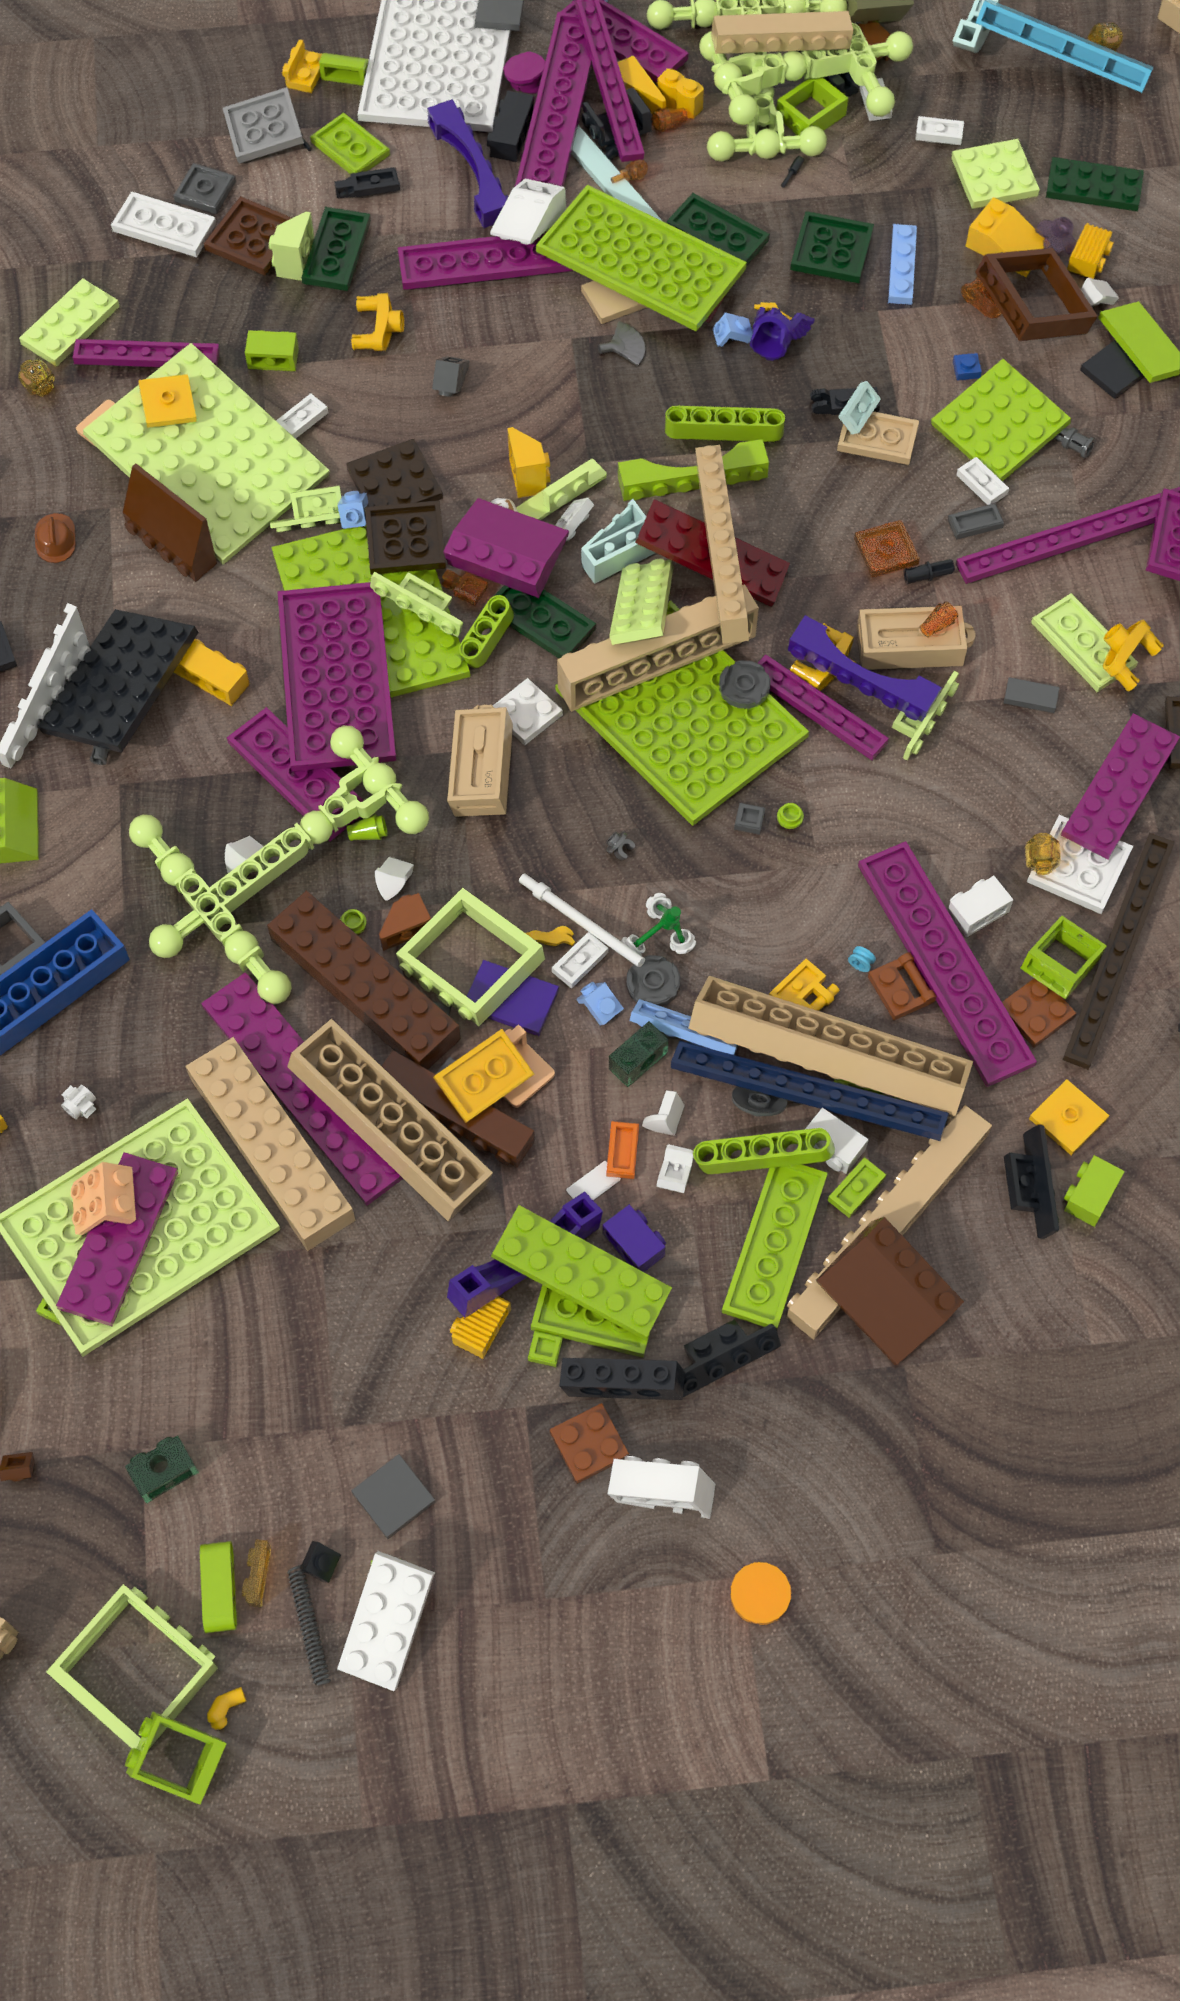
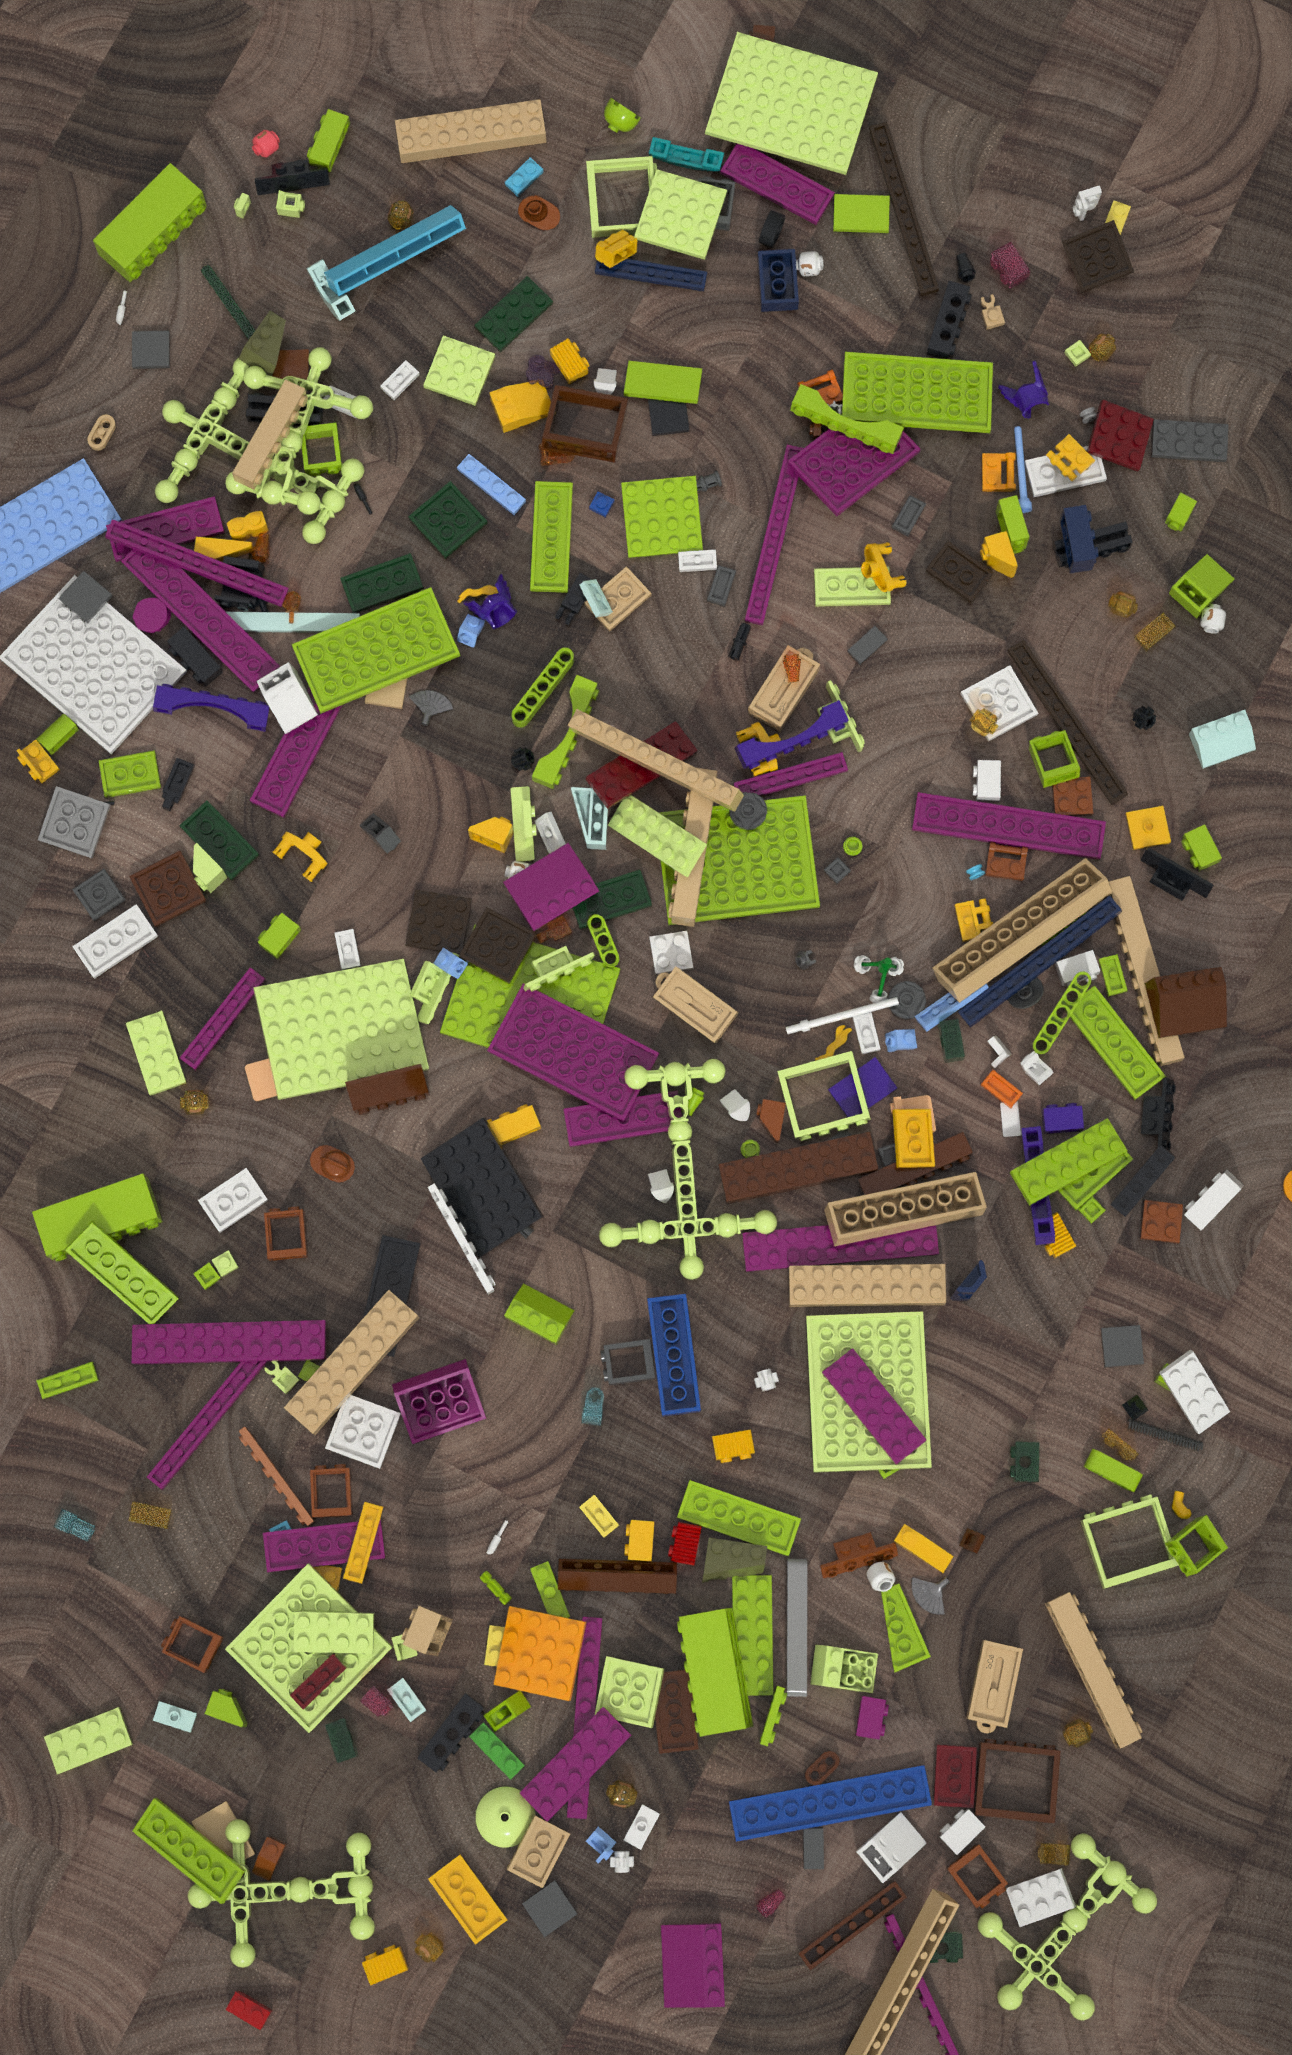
camera: 55 degrees left, 15 degrees up
(103, 1195) = (848, 1401): light nougat bracket -> none
(167, 400) = (294, 1031): yellow plate -> none
(344, 1249) = (971, 1283): none -> dark blue piece
(631, 447) = (522, 759): none -> black gear
(886, 548) = (705, 655): clear orange plate -> none
(892, 341) = (551, 537): none -> lime plate
(1120, 786) = (968, 642): magenta plate -> none

